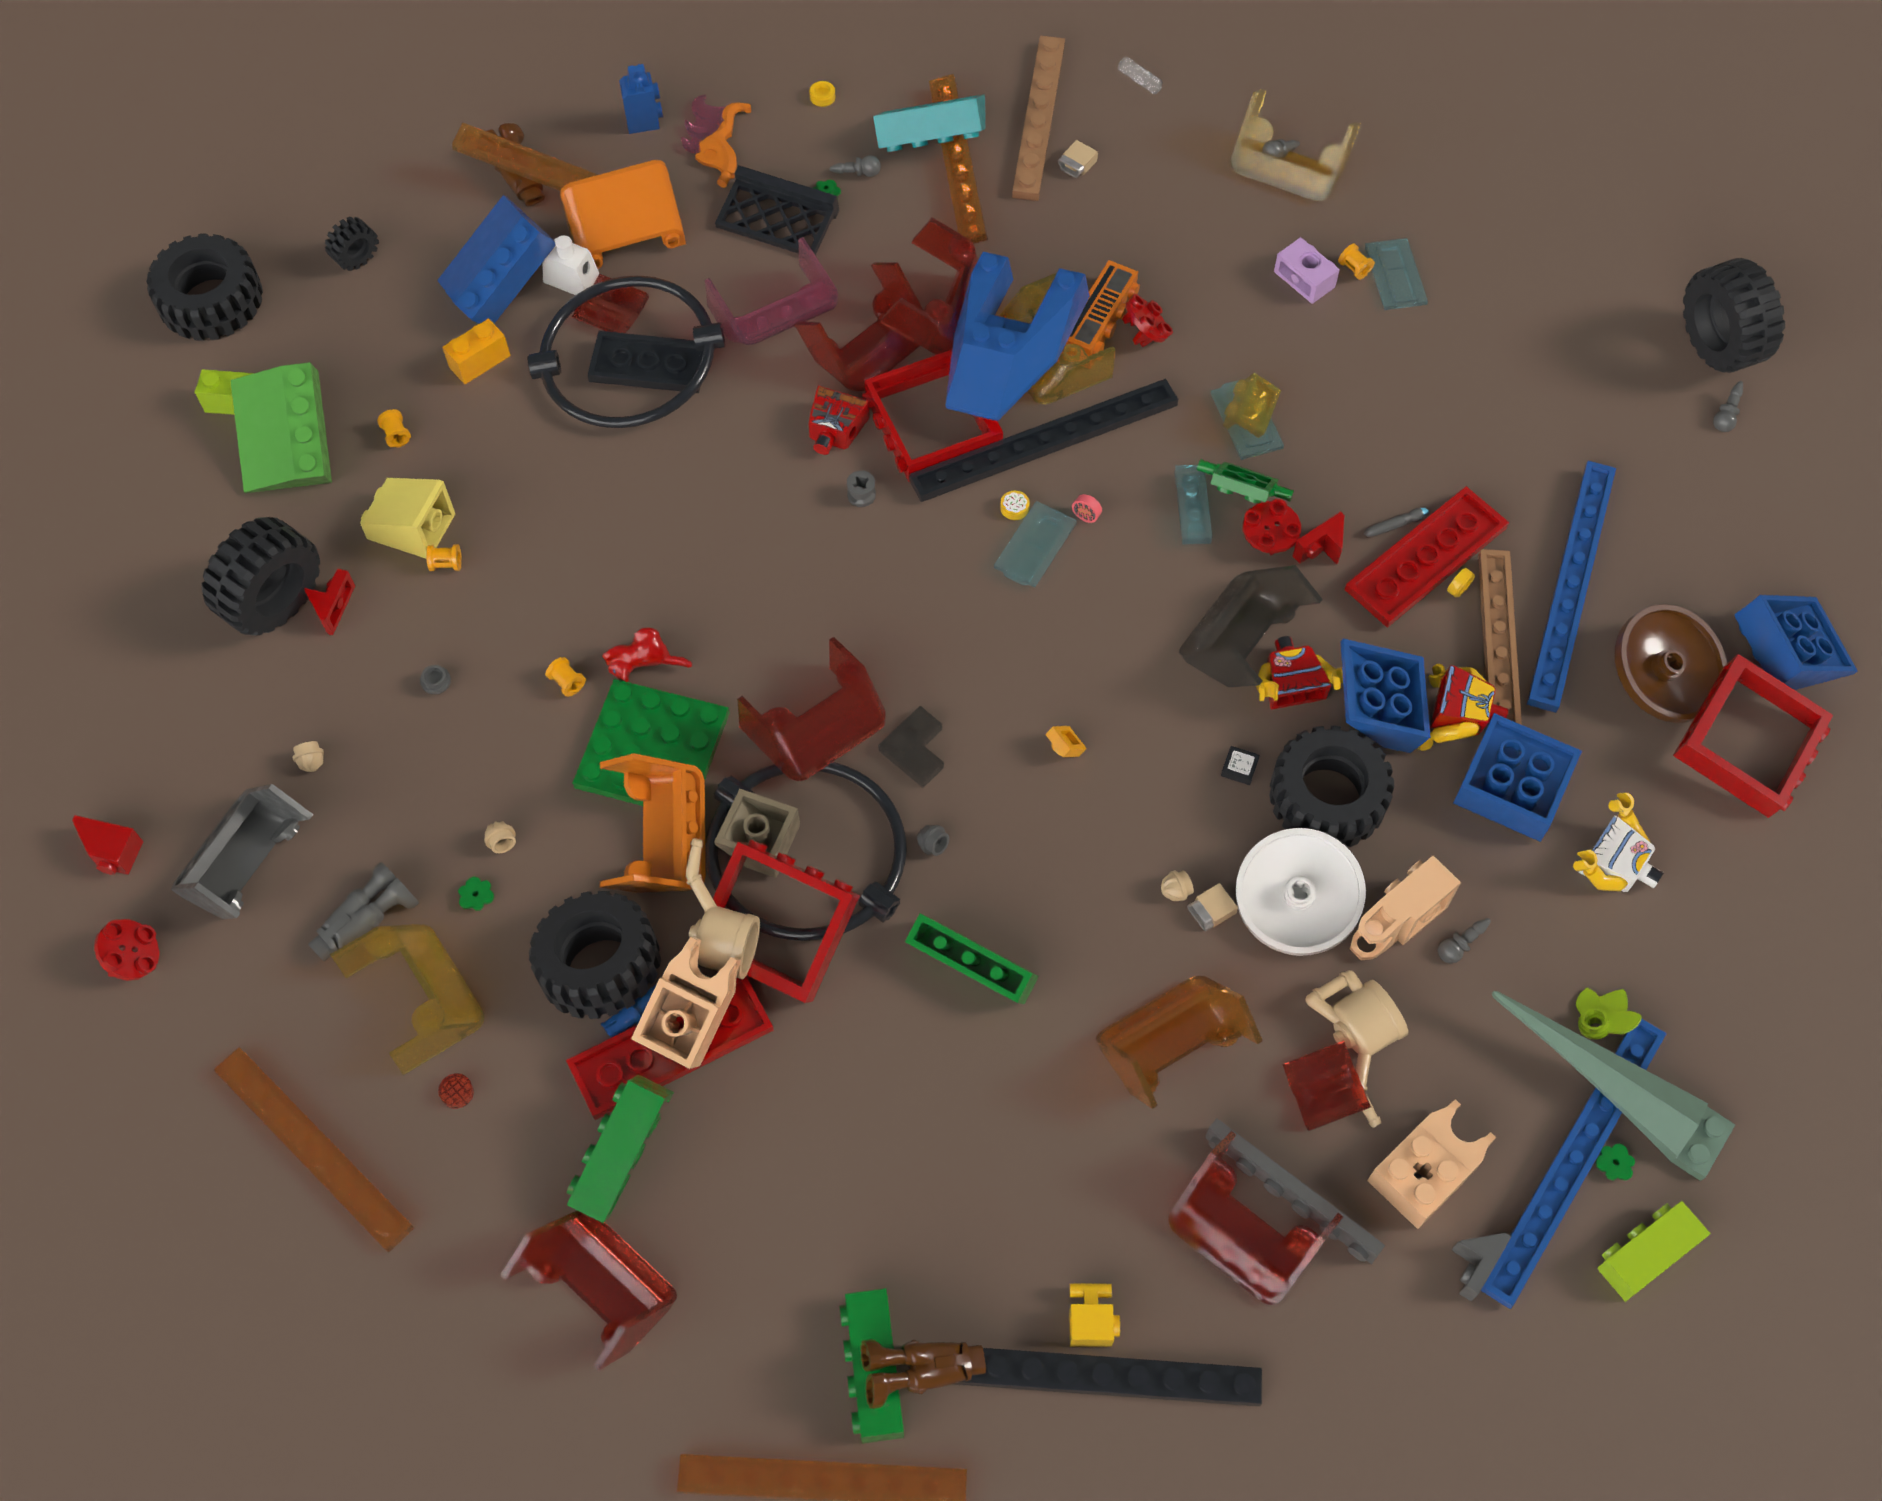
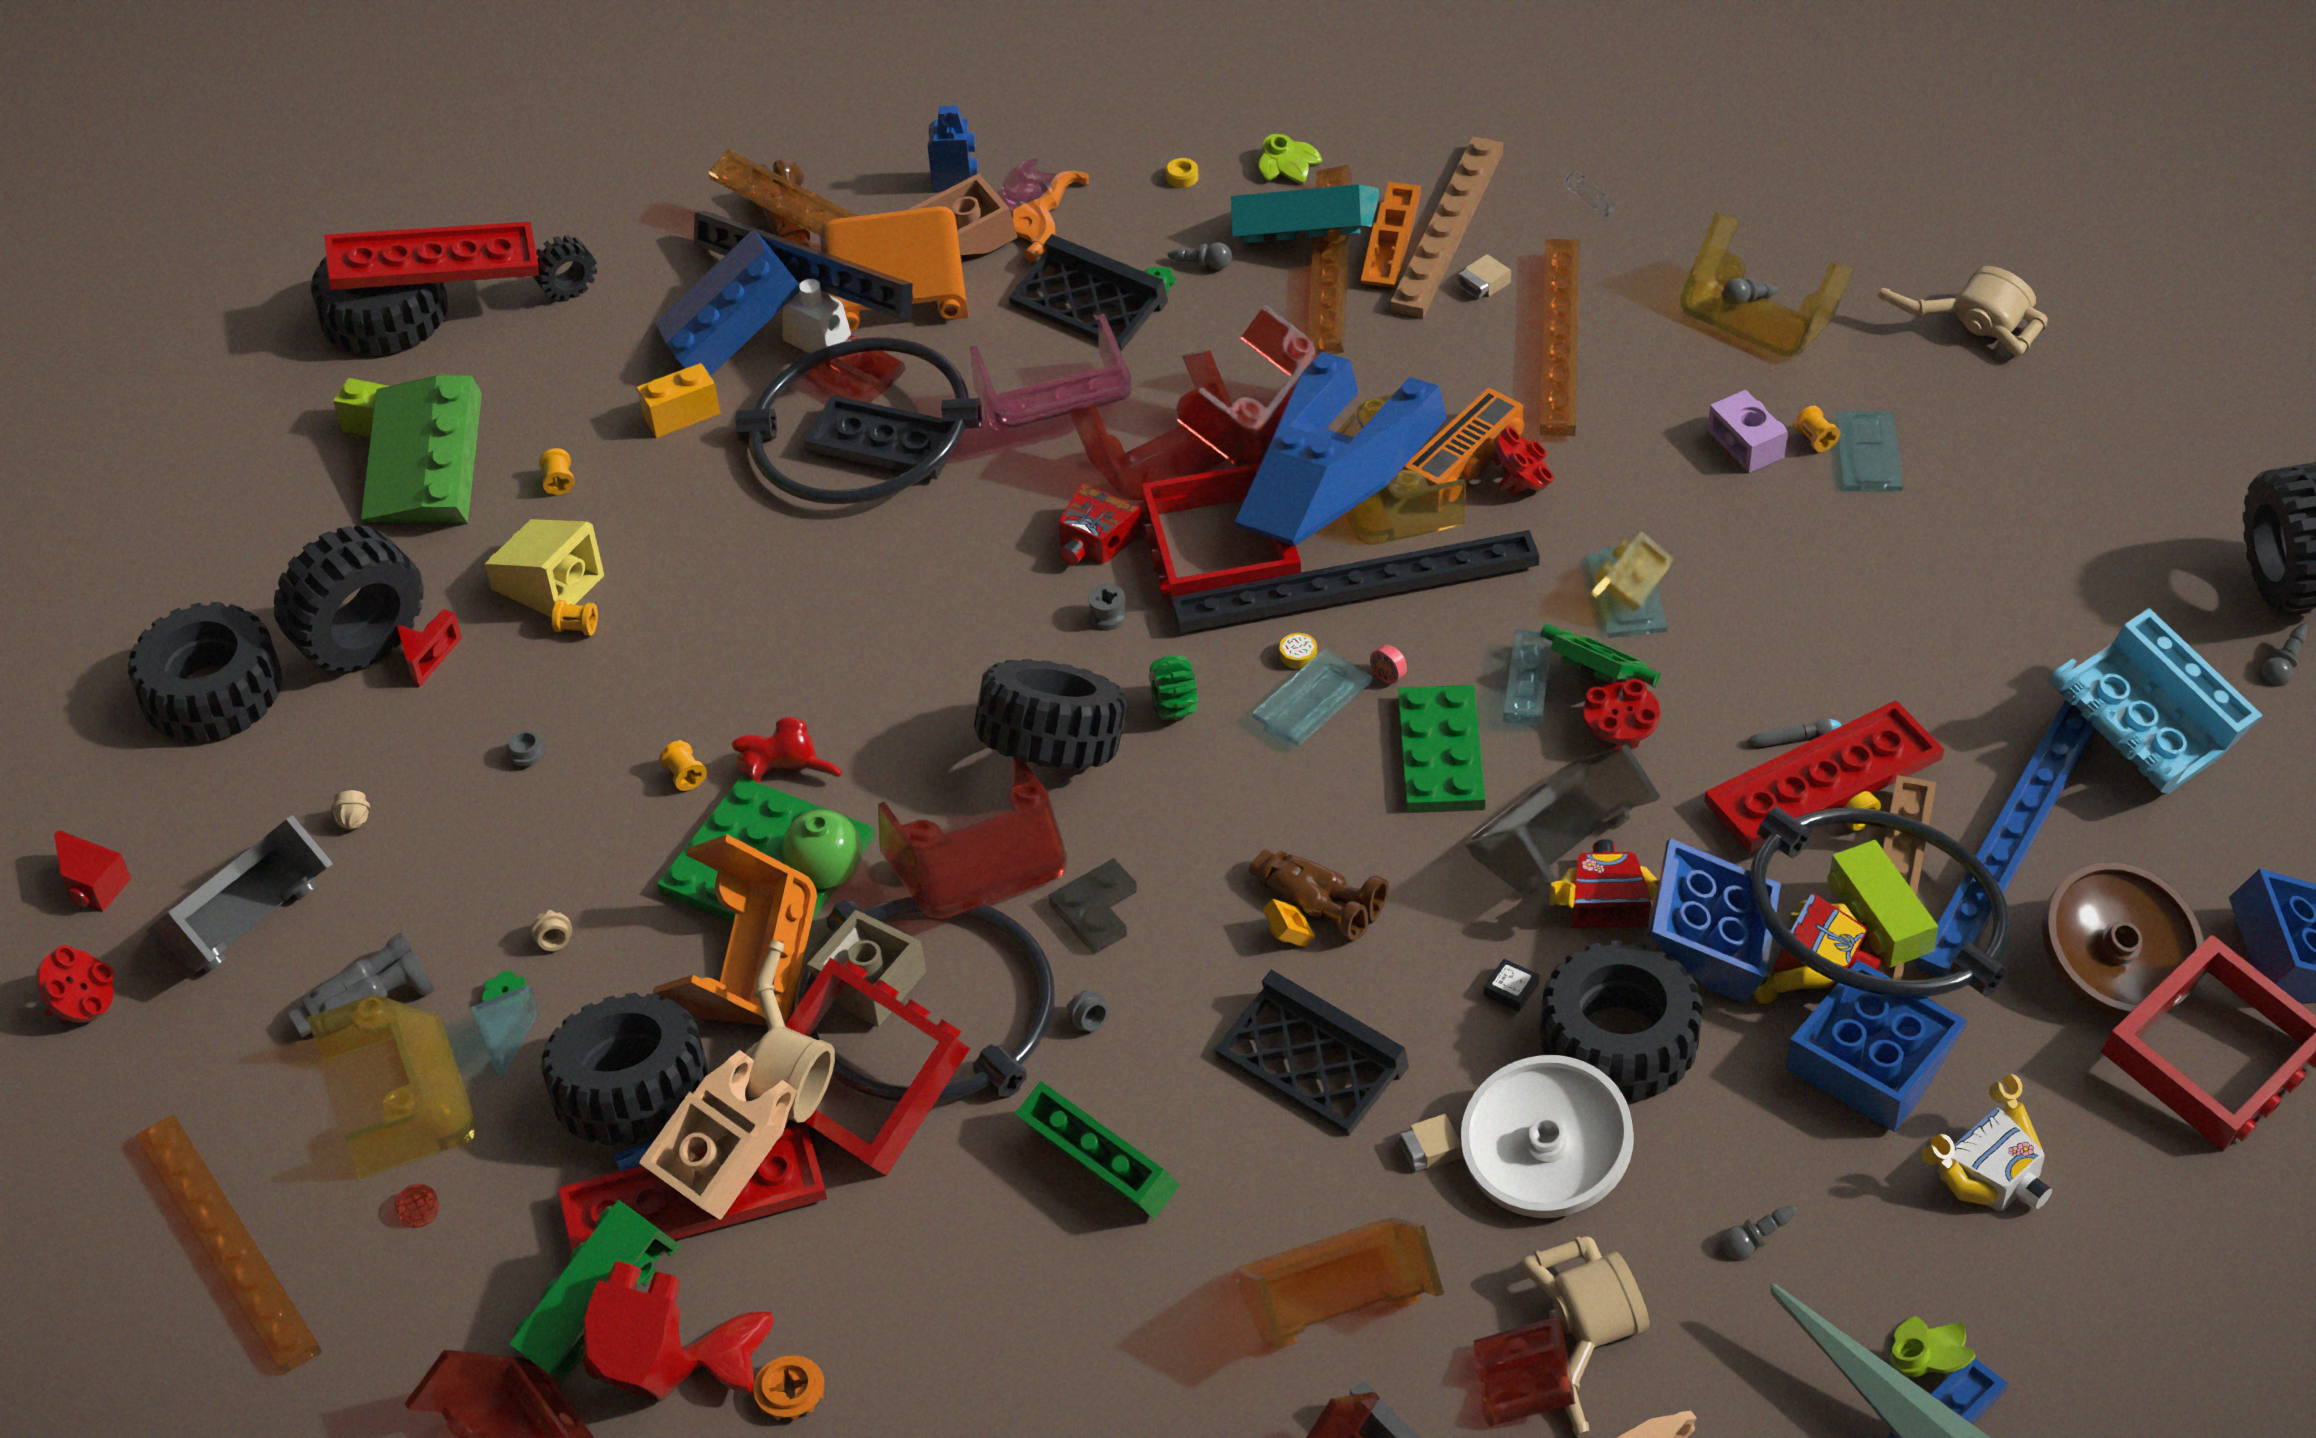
camera: 15 degrees right, 15 degrees down
(137, 626) = (212, 703): none -> black tyre
(242, 252) = (430, 255): none -> red plate
(484, 925) = (504, 1024): none -> clear light blue slope
(558, 222) = (833, 273): none -> black plate
(671, 1193) = (637, 1343): none -> red hips
(673, 147) = (980, 215): none -> nougat slope
(697, 737) = (823, 847): none -> bright green cylinder
(793, 1180) = (770, 1386): none -> orange gear
(848, 597) = (1050, 714): none -> black tyre
(904, 73) = (1287, 157): none -> lime plate
(931, 554) = (1173, 687): none -> green gear
(999, 131) = (1391, 235): none -> orange slope
(1077, 707) = (1314, 888): none -> reddish brown piece
(1125, 827) = (1338, 1030): none -> black fence
(1141, 573) = (1441, 749): none -> green plate
(1148, 206) = (1559, 338): none -> clear orange plate
(1177, 886) = (1388, 1110): tan plate -> none
(1325, 537) = (1689, 734): red slope -> none
(1406, 907) = (1682, 1174): light nougat brick -> none
(1458, 140) = (1987, 306): none -> tan piece
(1498, 661) = (1883, 903): none -> lime brick
(1577, 705) = (1969, 967): none -> black piece
(1656, 463) = (2157, 702): none -> medium azure slope

